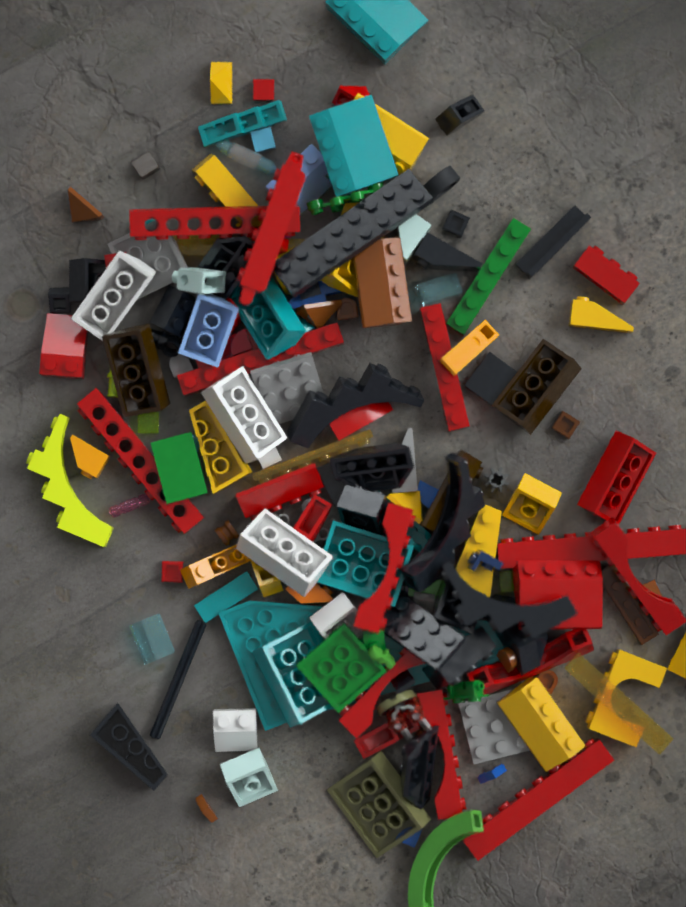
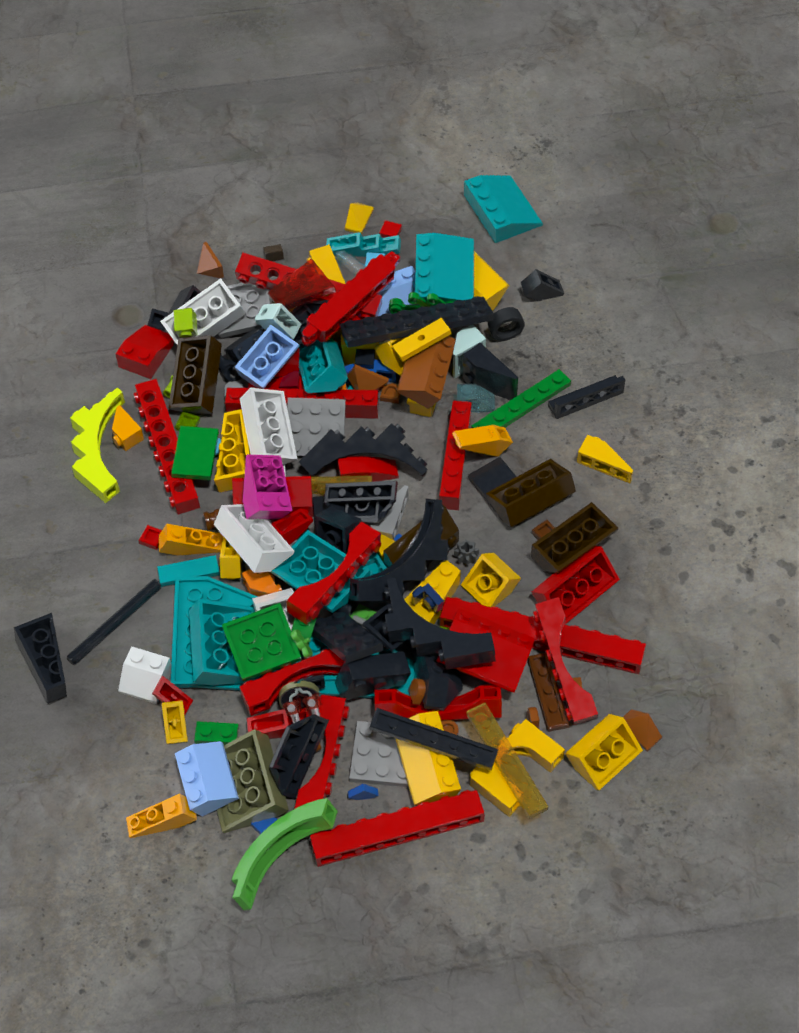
camera: 20 degrees right, 30 degrees down
(103, 319) = (185, 322): none -> lime brick
(129, 505) = (140, 476): clear pink axle -> none
(152, 638) = (108, 580): clear light blue panel -> none
(206, 808) = (86, 734): dark orange tile -> none
(213, 235) = (302, 286): none -> clear red wedge
(248, 777) = (137, 719): light aqua slope -> none
(273, 744) = (168, 692): none -> red slope
(278, 501) = (265, 488): none -> dark pink slope
(287, 770) = (174, 722): none -> yellow slope
(315, 867) = (161, 817): none -> light orange slope
(329, 762) = (215, 732): none -> green plate
(342, 816) = (206, 777): none -> light blue slope
(359, 270) = (422, 339): none -> yellow tile
(456, 223) = (510, 359): black tile -> none
(473, 691) = (366, 705): green hinge -> none
(545, 712) = (434, 739): none -> black tile
(601, 433) = (572, 539): none -> dark brown slope
(606, 274) = (623, 430): red brick -> none
(624, 639) = (533, 716): none -> dark orange tile

